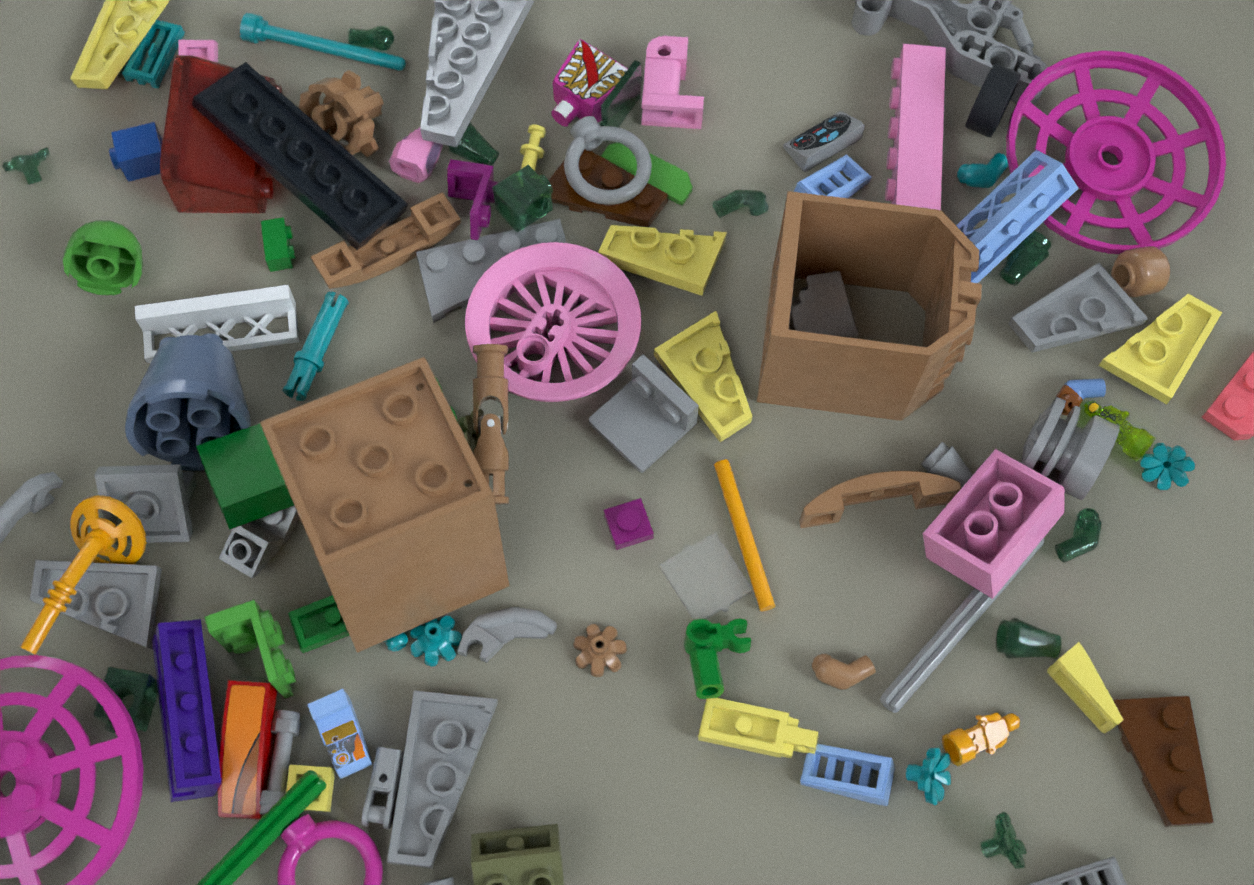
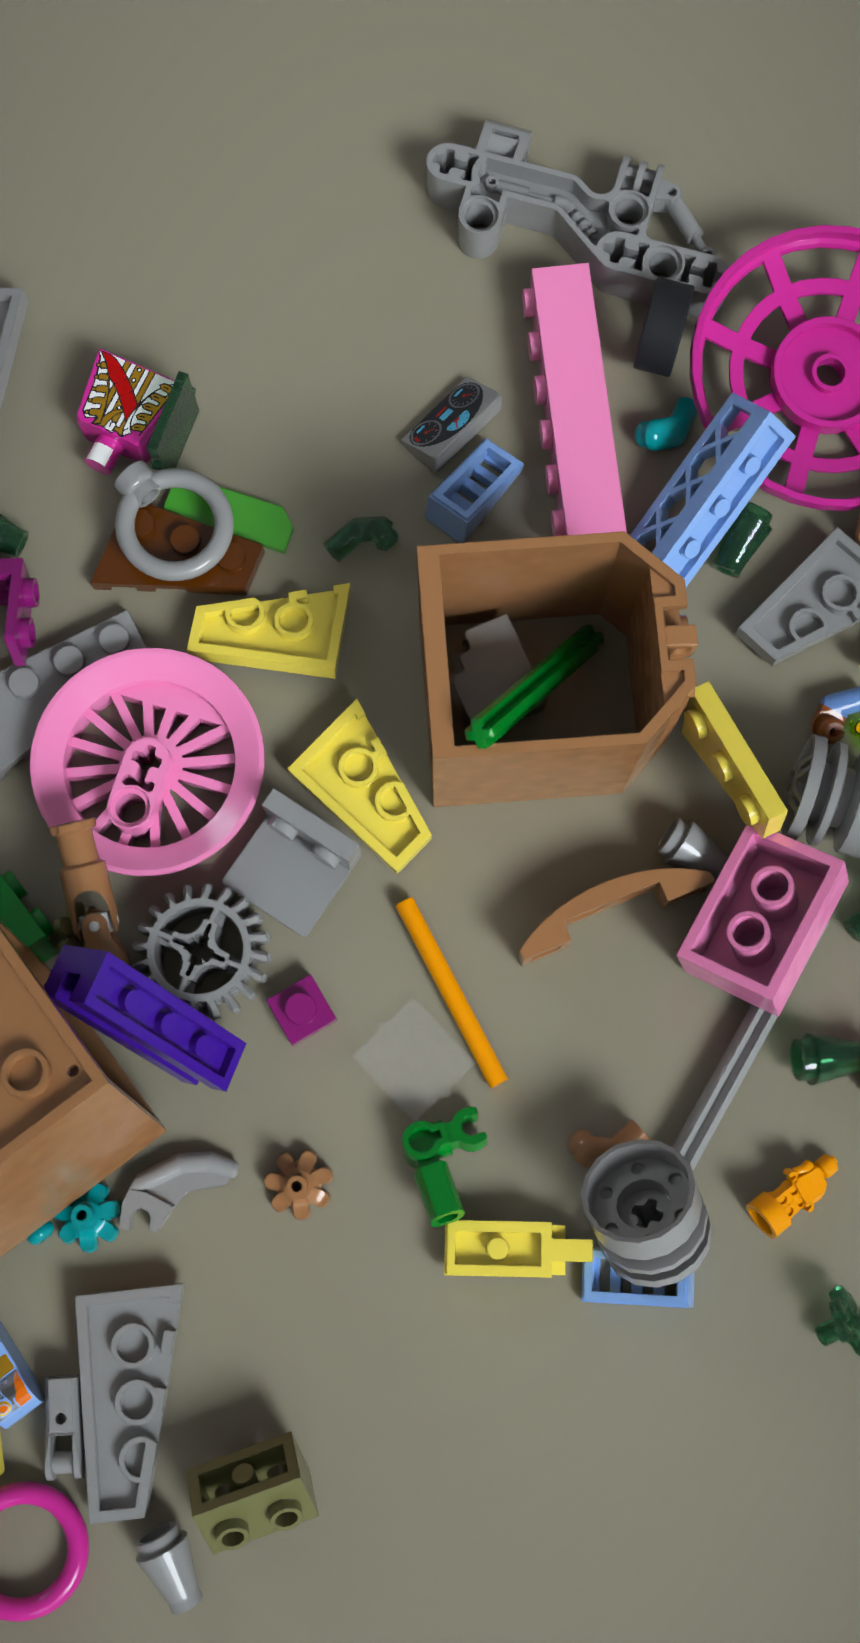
camera: 10 degrees left, 10 degrees up
(521, 491) = (143, 1017): none -> dark purple brick
(523, 198) = (72, 595): clear green brick -> none
(532, 151) = (71, 526): light yellow piece -> none
(541, 446) = (211, 931): none -> light grey gear
(661, 99) = (221, 366): bright pink piece -> none
(852, 314) = (533, 687): none -> green axle
(865, 716) = (647, 1212): none -> light grey wheel
(931, 775) = (741, 1259): teal plant -> none
(989, 402) = (731, 761): none -> light yellow wing

